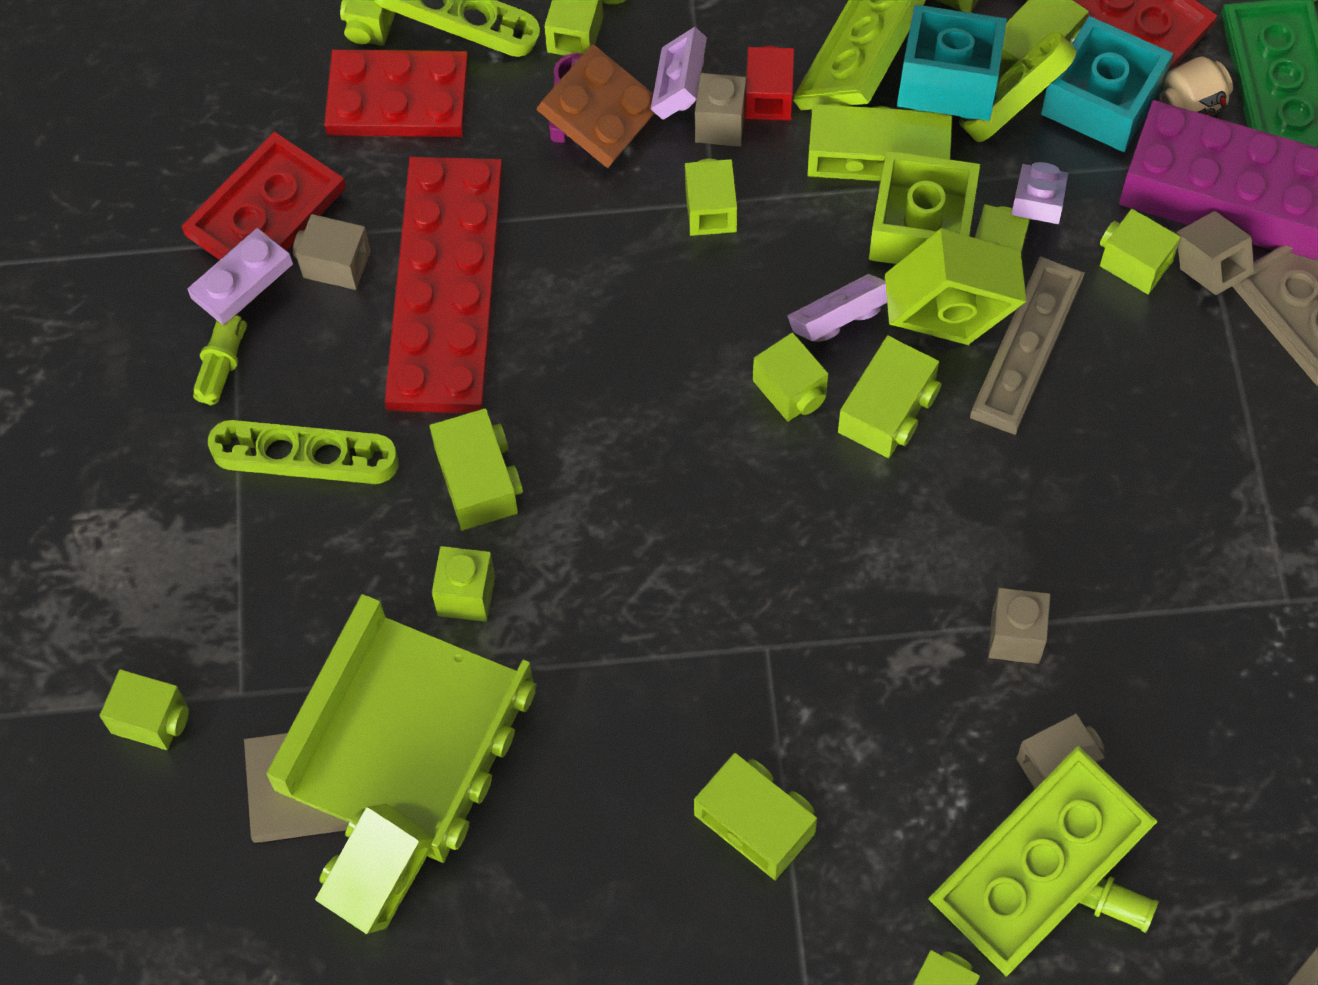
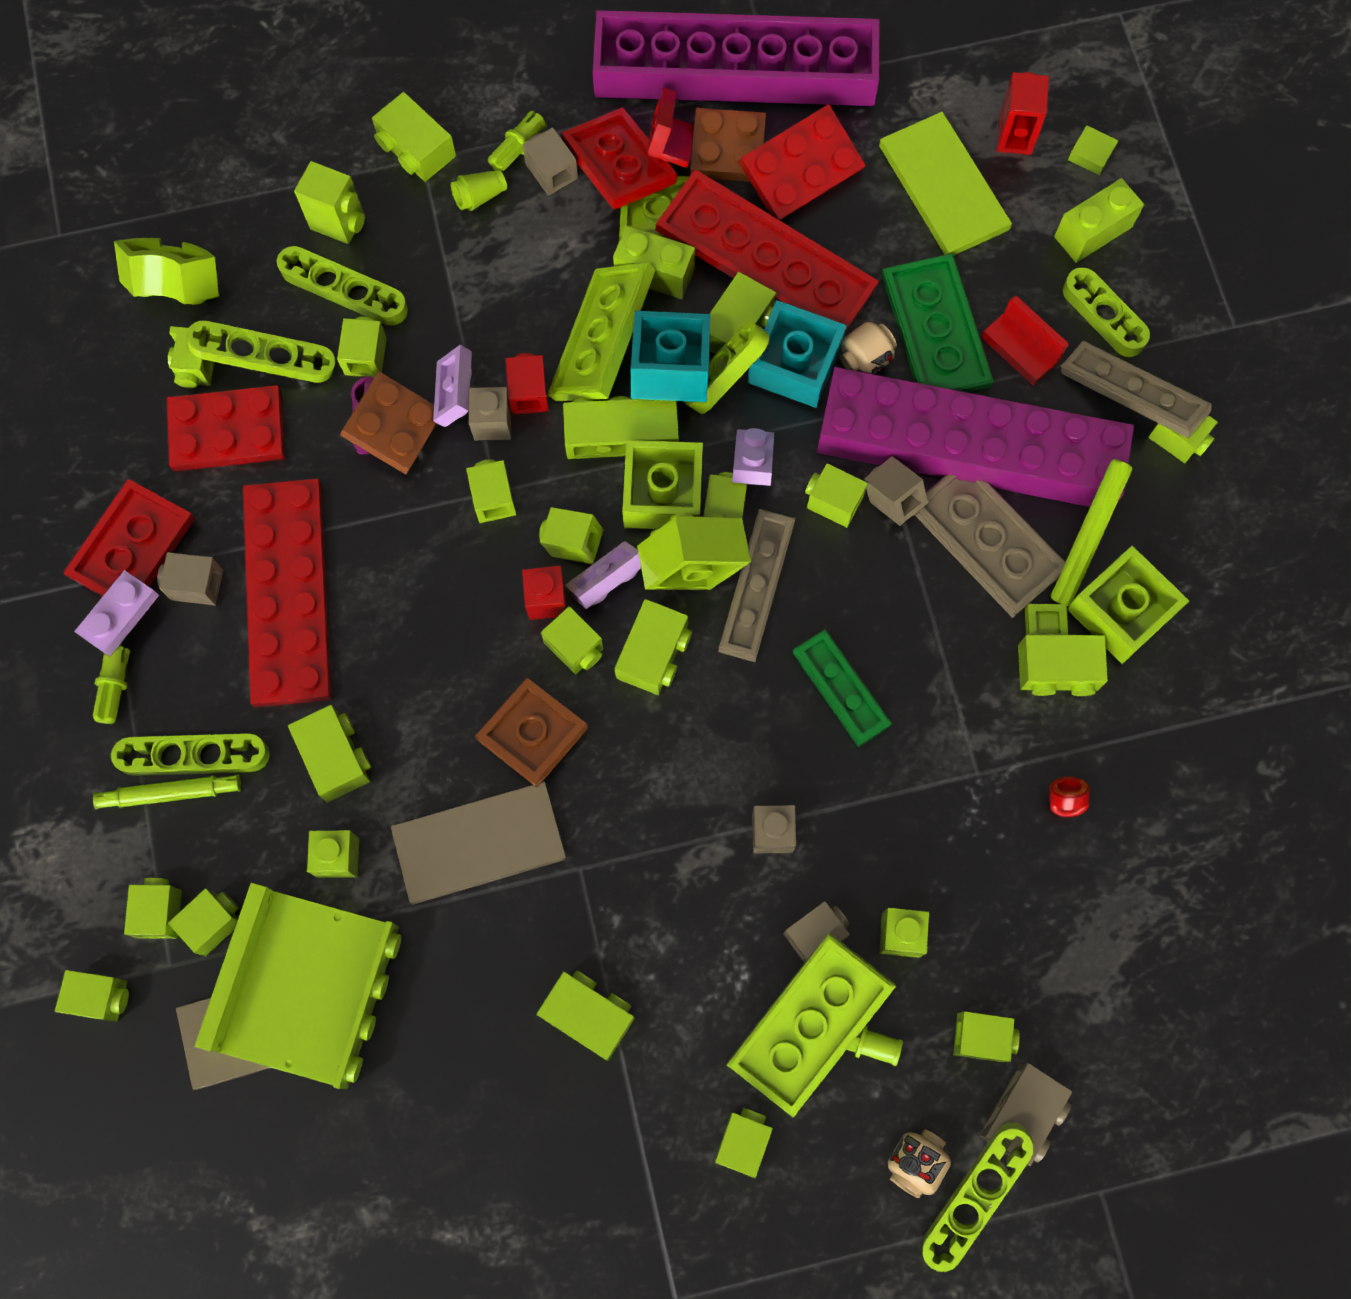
camera: 10 degrees left, 10 degrees up
(233, 621) = (151, 909): none -> lime brick
(268, 490) = (166, 791): none -> lime piece
(296, 641) = (206, 921): none -> lime brick
(374, 867) = (292, 1106): brick -> none
(644, 598) = (478, 843): none -> dark tan tile
(727, 475) = (532, 732): none -> dark orange plate
(762, 315) = (544, 592): none -> red brick
(803, 256) = (571, 535): none -> lime brick
(1122, 477) = (841, 688): none -> green tile
(1173, 769) = (904, 932): none -> lime brick
(1267, 911) = (985, 1037): none -> lime brick

